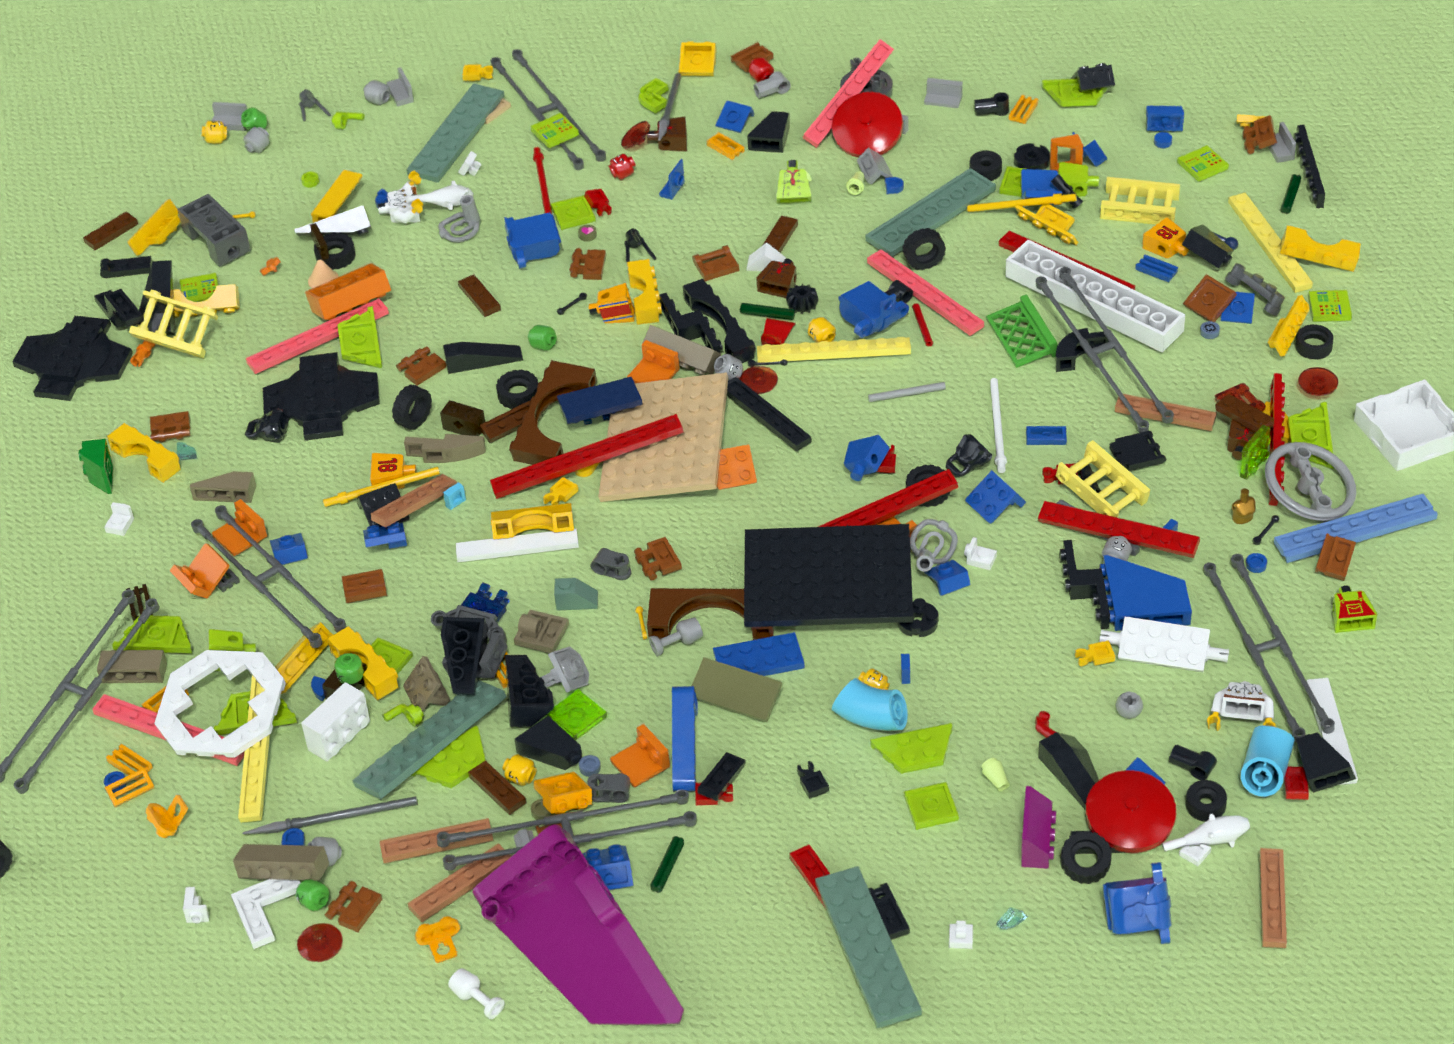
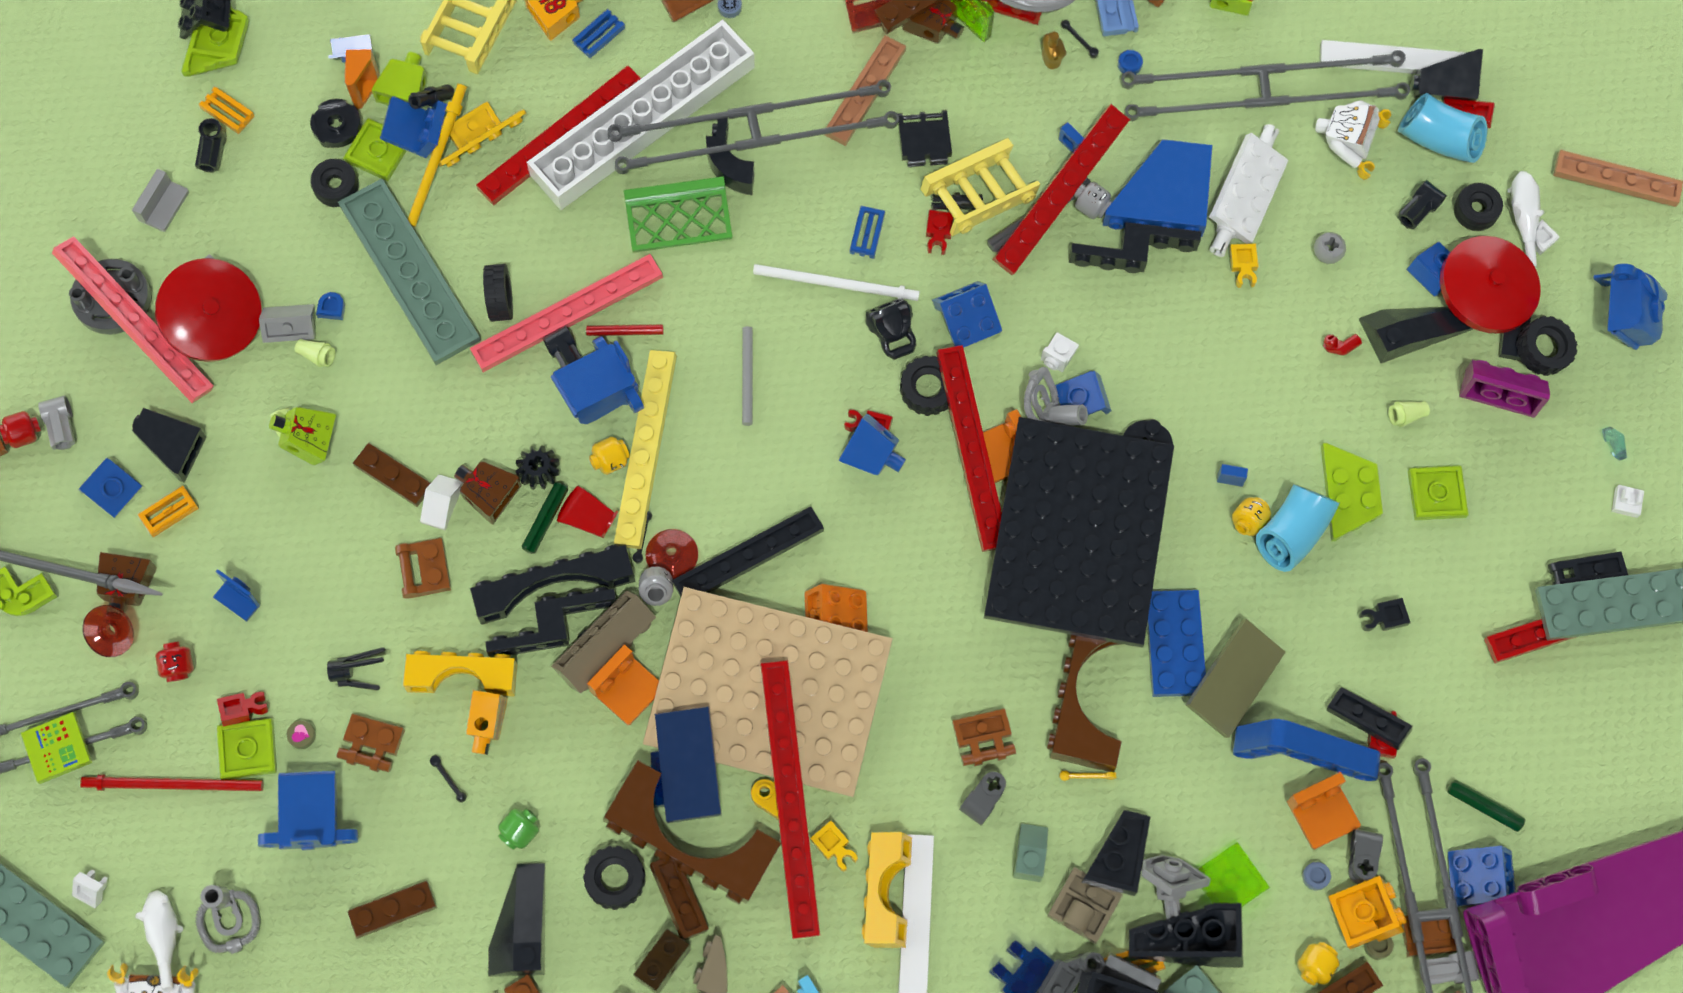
camera: 85 degrees left, 25 degrees up
(549, 745) = (1283, 919): black slope -> none
(587, 644) = (1121, 856): none -> black wing
(687, 631) = (1124, 720): light grey piece -> none

